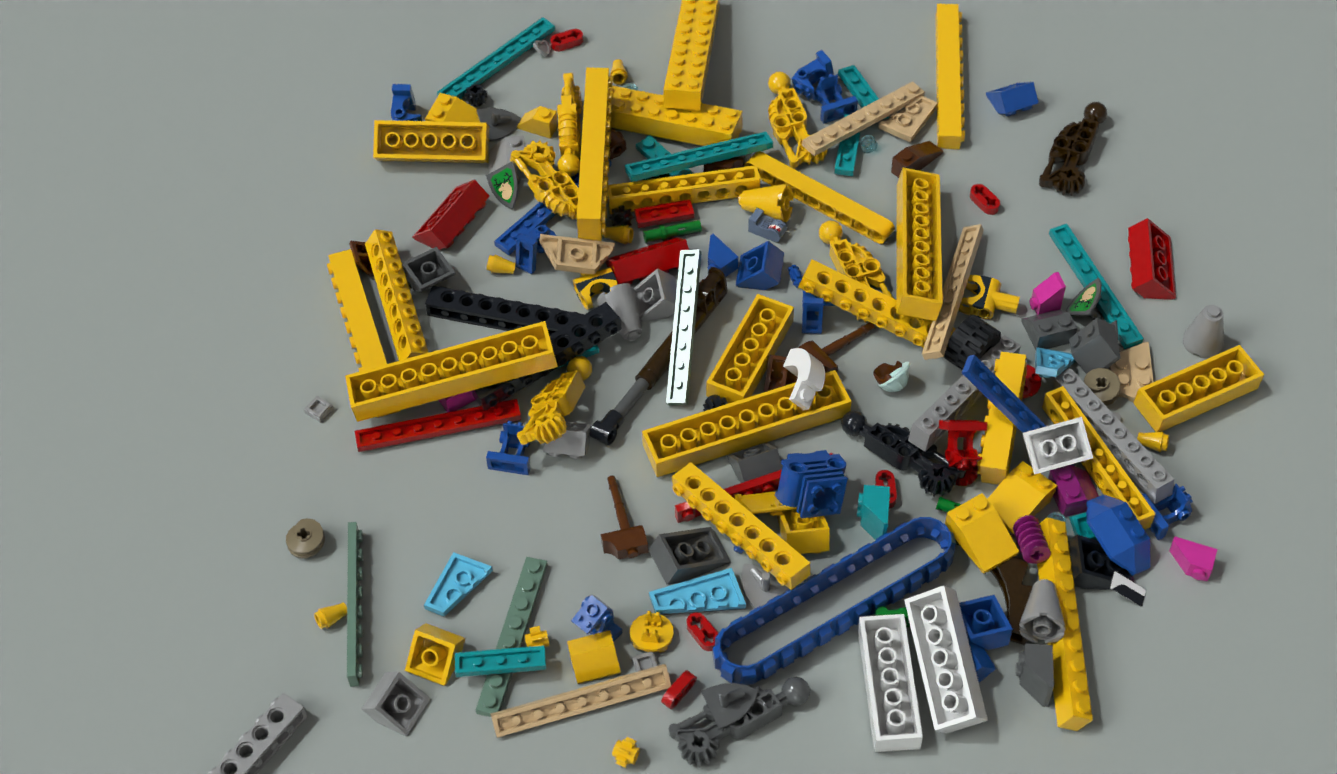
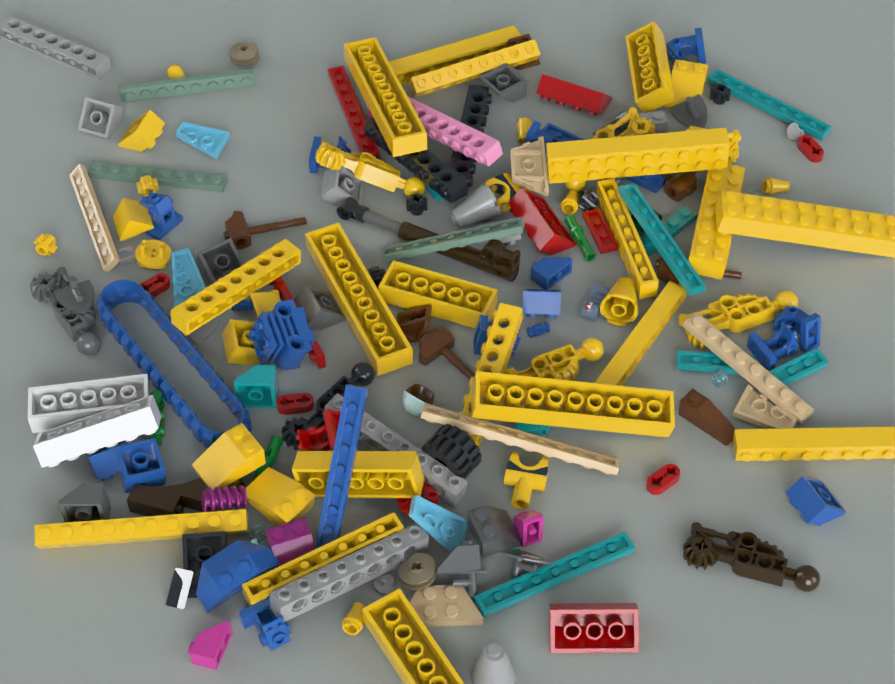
camera: 85 degrees right, 5 degrees down
(500, 661) = (125, 163): teal plate -> none
(539, 290) = (457, 135): none -> bright pink brick
(605, 367) = (416, 204): none -> black gear
(679, 689) = (98, 273): red beam -> none
(810, 376) = (396, 321): white arch -> none
(1042, 614) = (141, 500): light grey cone -> none
(1057, 445) = (320, 510): white slope -> none

